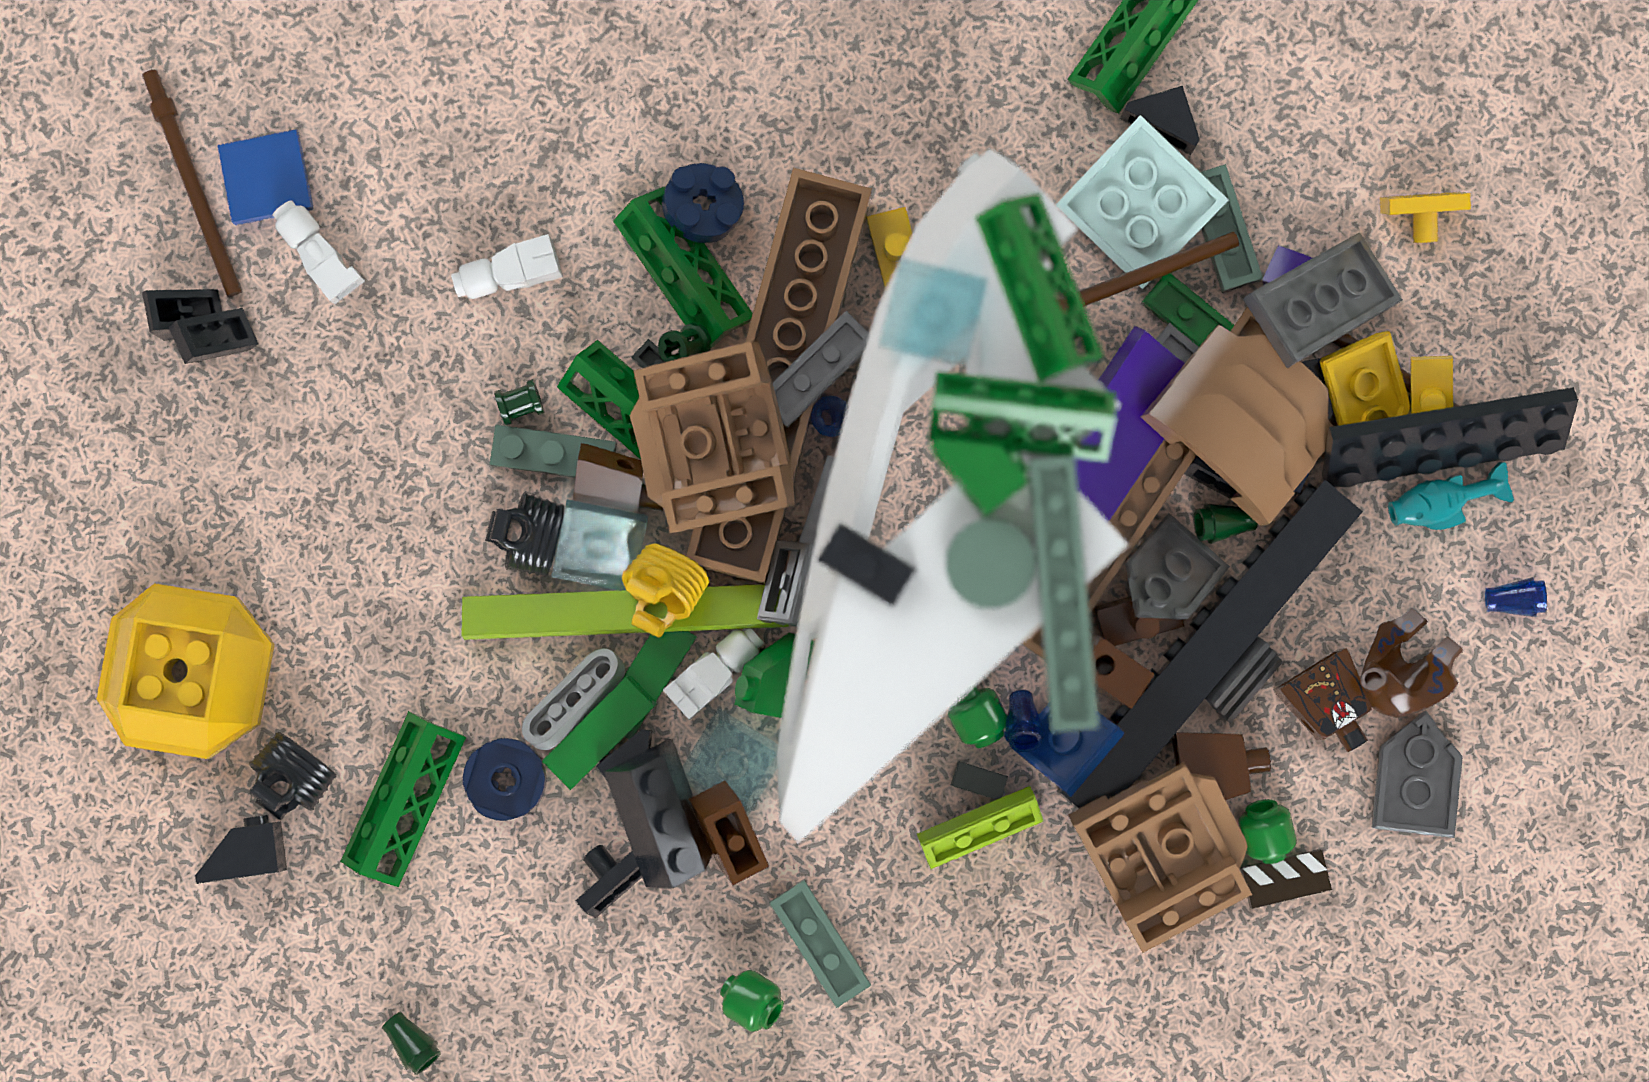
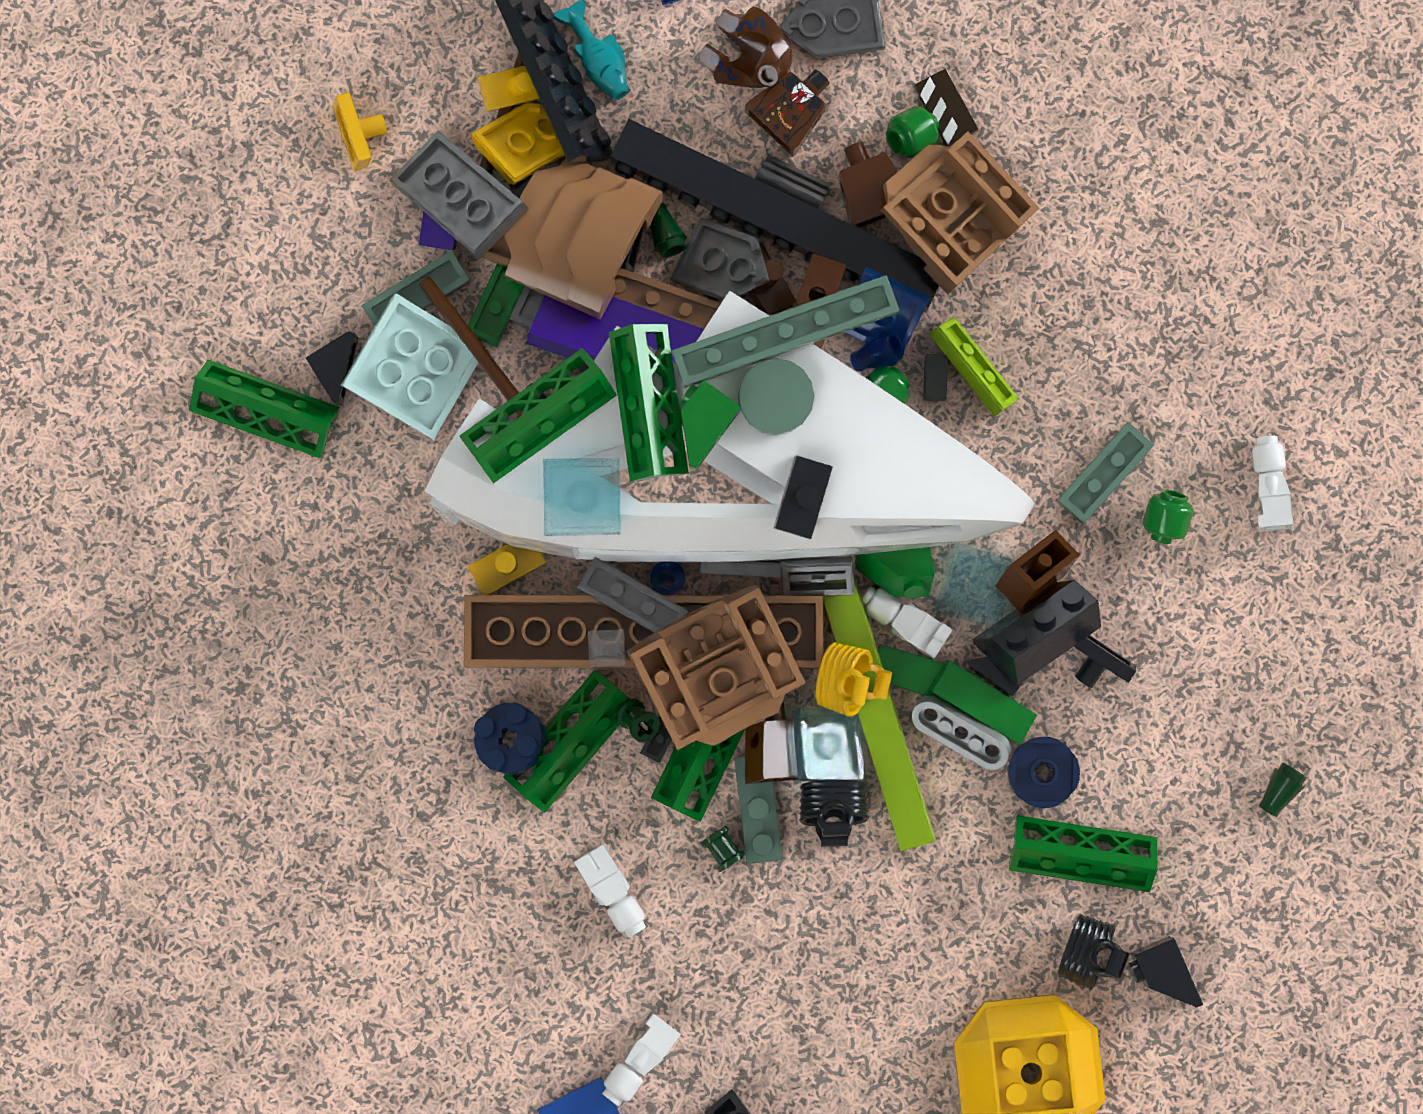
camera: 110 degrees left, 0 degrees up
(770, 326) = (606, 648): none -> clear tile

